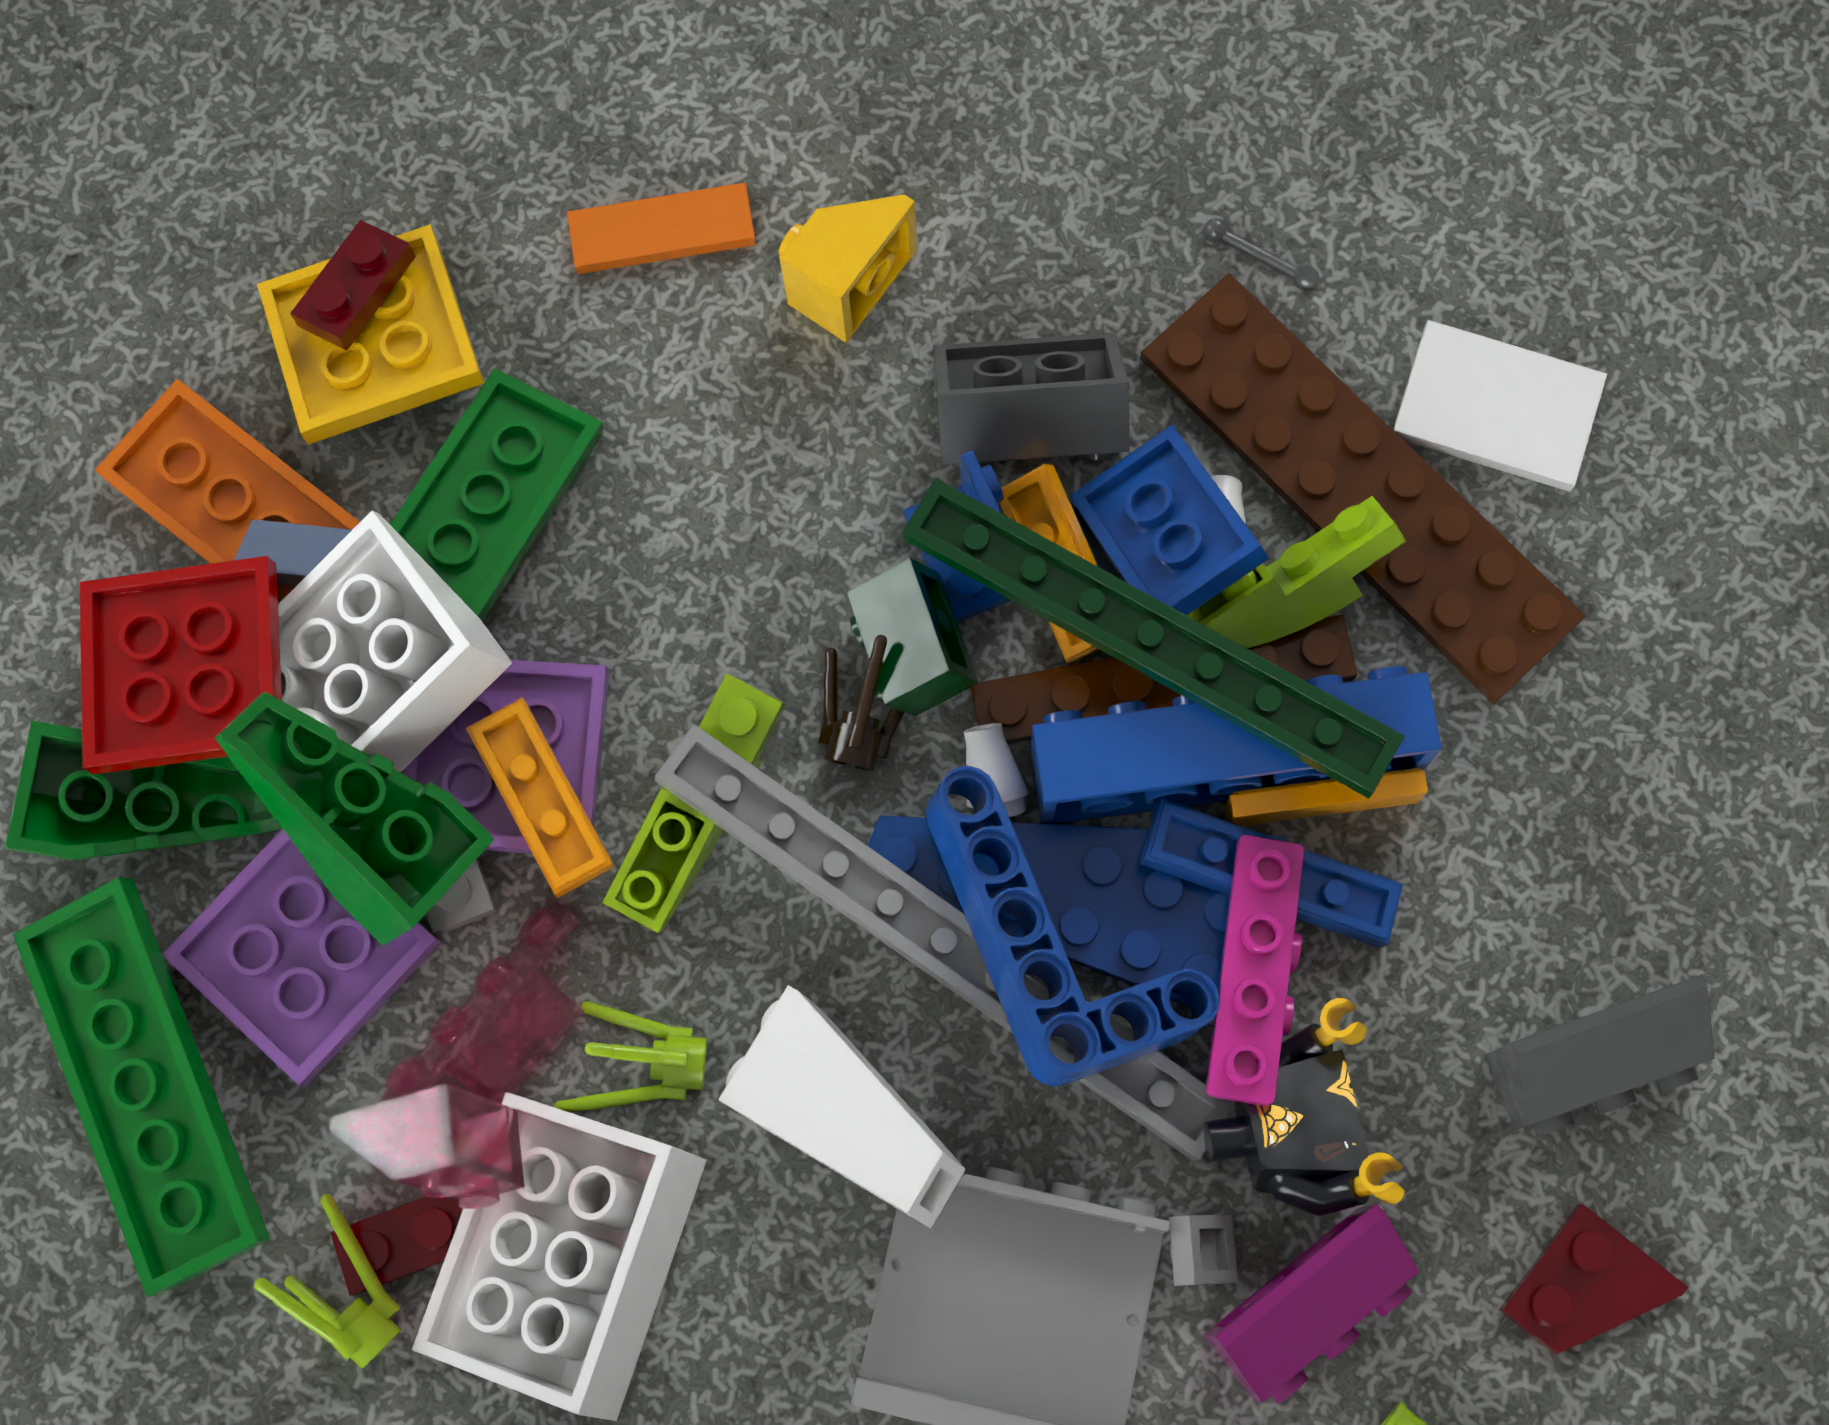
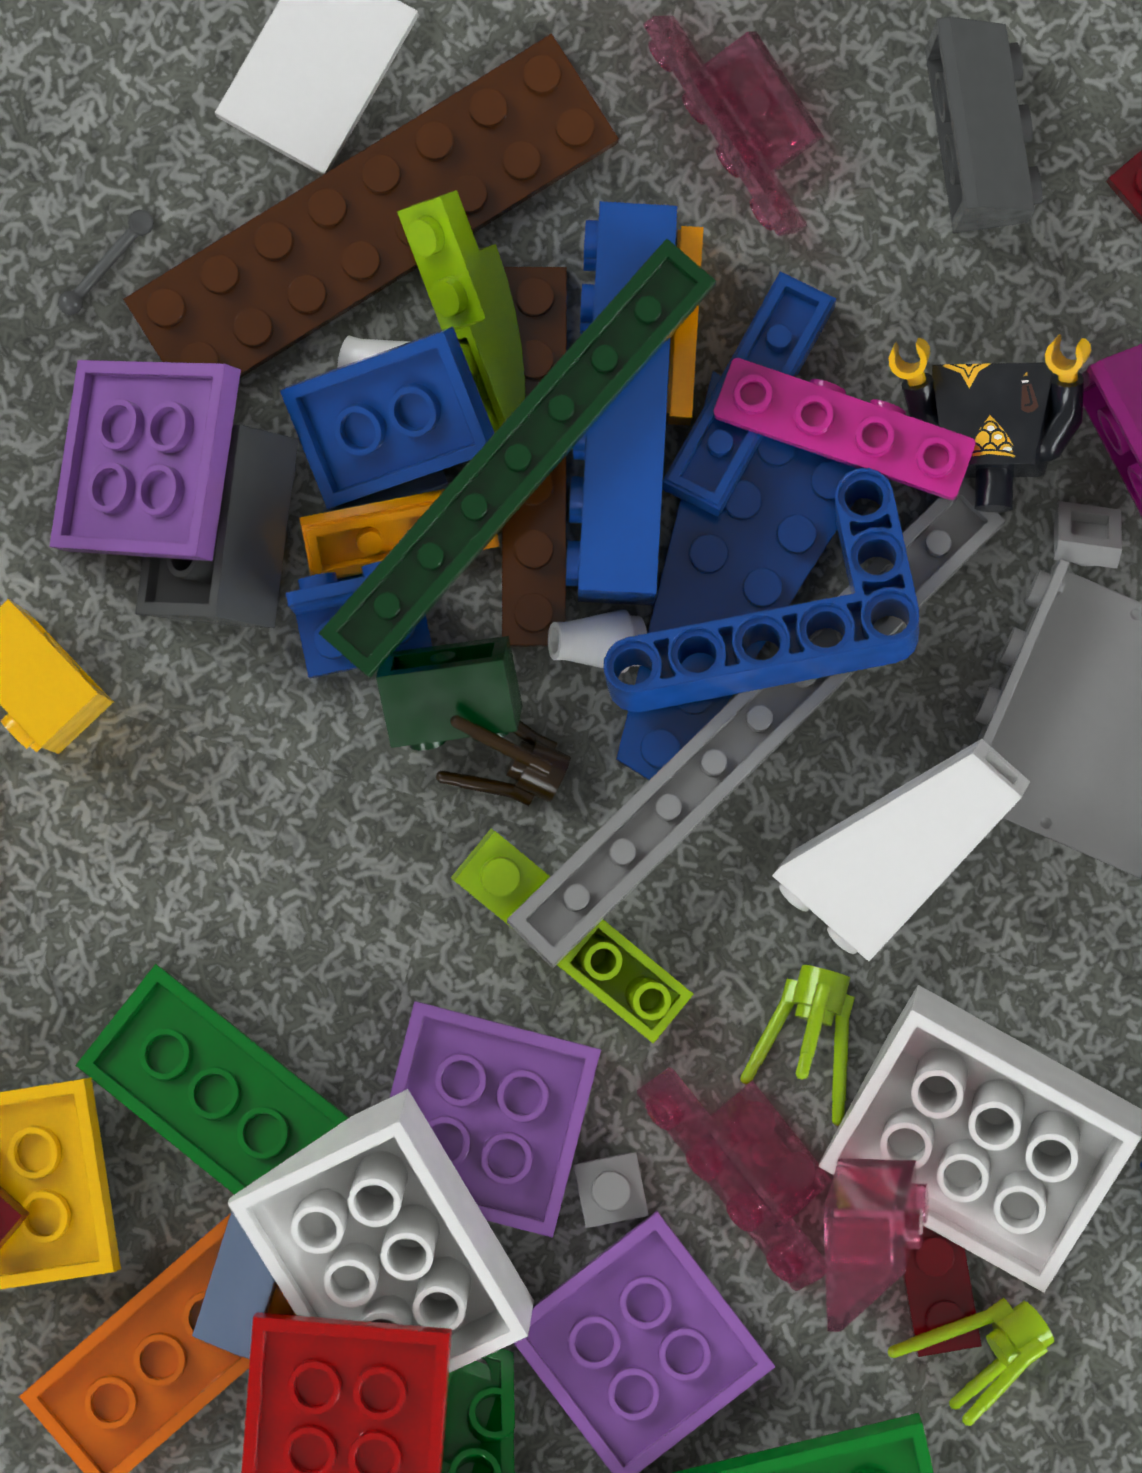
camera: 85 degrees left, 10 degrees up
(362, 826) = (549, 1257): green wedge -> none
(540, 797) = (538, 1087): light orange tile -> none
(1079, 313) = (145, 459): none -> medium lavender plate
(1555, 818) = (747, 111): none -> clear pink bracket

